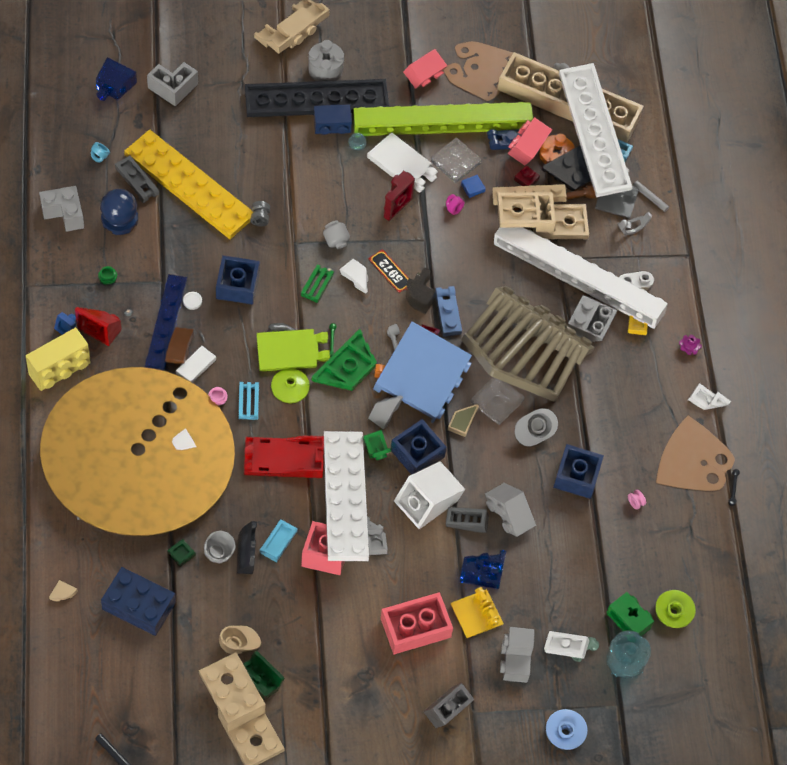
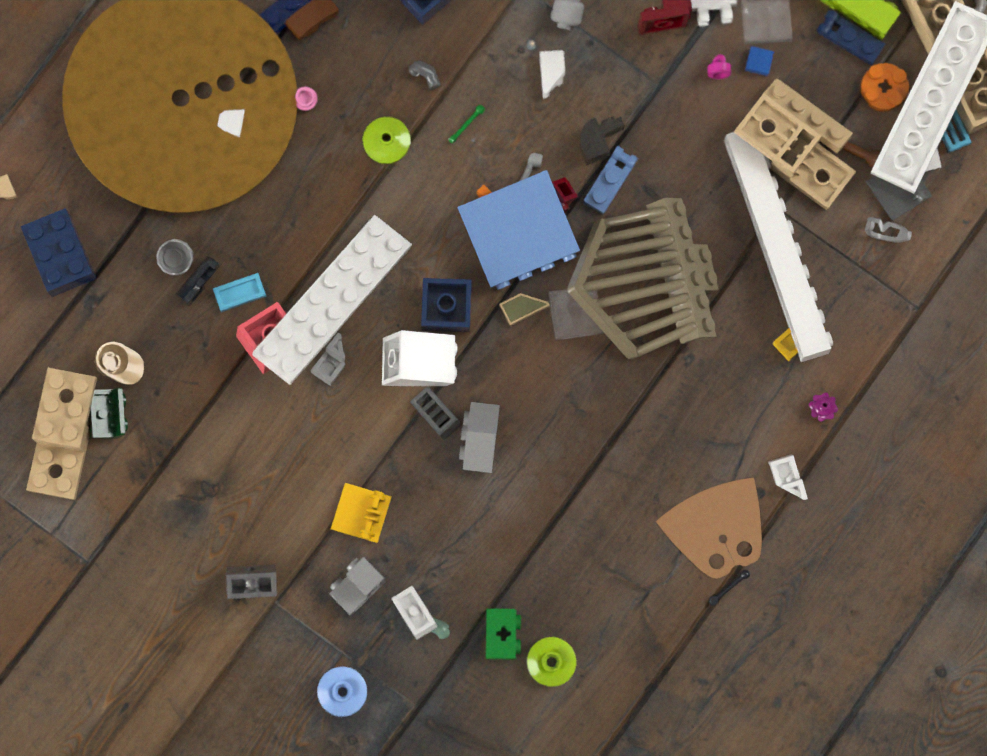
camera: 45 degrees right, 20 degrees up
(181, 552) = (140, 233): dark green tile -> none
(196, 364) = (312, 49): white tile -> none
(248, 386) = (344, 110): medium azure tile -> none
(284, 456) = (315, 210): red piece -> none
(291, 349) = (415, 102): lime tile -> none
(323, 271) = (522, 42): green tile -> none
(347, 365) = (459, 162): green wing -> none
(376, 445) = (411, 269): green bracket -> none
(384, 410) = (448, 239): light grey slope -> none
(390, 270) = (592, 90): sticker -> none
(416, 623) = (291, 478): coral brick -> none
(483, 569) = (406, 475): clear blue slope -> none
(526, 177) = (825, 93): dark red tile -> none
(531, 138) = (853, 57): coral brick -> none
(536, 427) = (580, 373): light grey piece -> none
(569, 169) = (873, 117): black wing -> none
(578, 471) = (582, 451): dark blue brick -> none
(591, 319) = (740, 303): light grey slope -> none
(628, 664) = (449, 672): clear light blue brick -> none
(636, 279) = (831, 297): white plate -> none
(636, 499) = (616, 524): bright pink bush -> none
(652, 197) = (938, 213): light grey piece -> none

